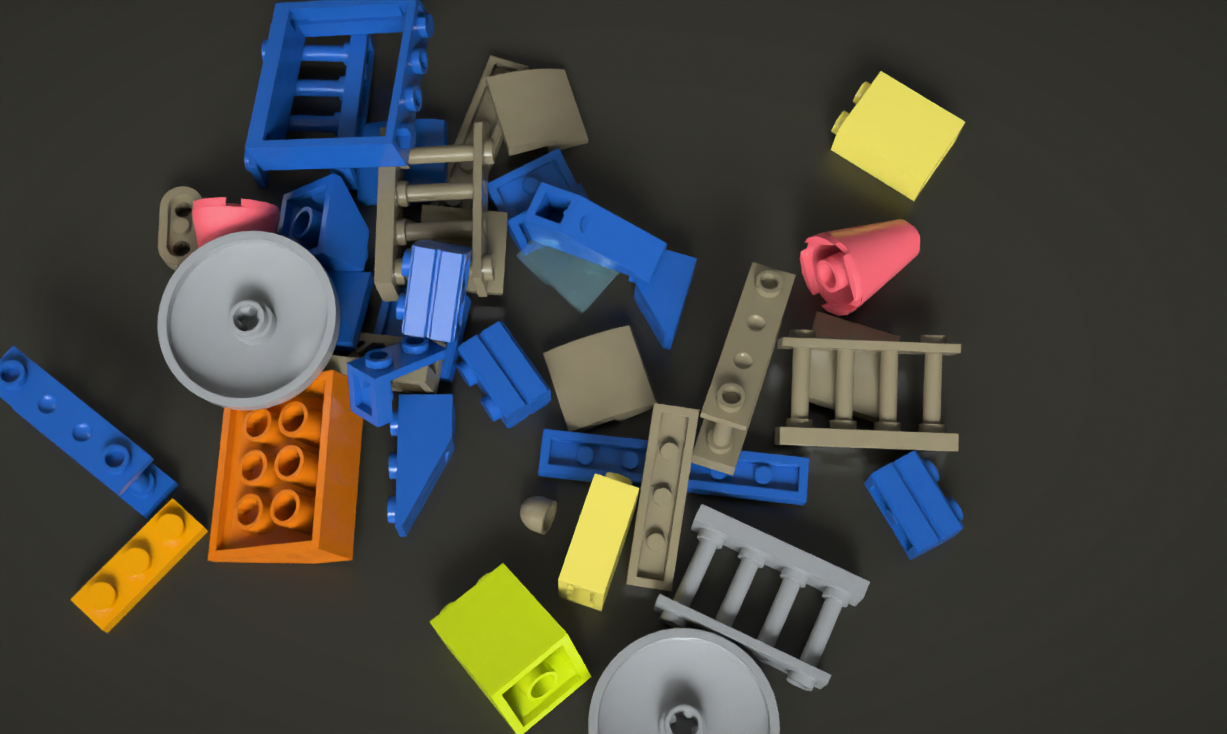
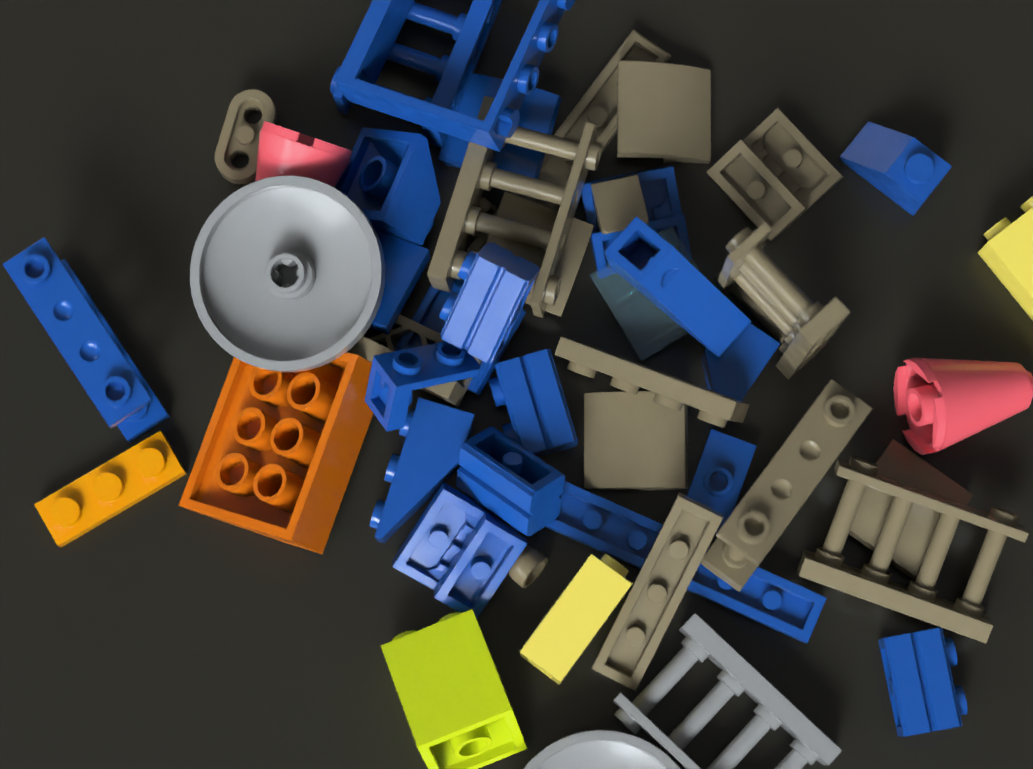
camera: 25 degrees right, 10 degrees up
(475, 518) = (459, 551): none -> slope
(502, 441) = (510, 481): none -> blue brick
(519, 188) = (618, 203): none -> dark tan slope
(614, 320) = (669, 390): none -> dark tan plate
(645, 133) = (775, 174): none -> dark tan slope
(683, 380) = (721, 473): none -> blue plate
(721, 223) = (776, 300): none -> dark tan fence
(742, 97) = (895, 165): none -> blue slope

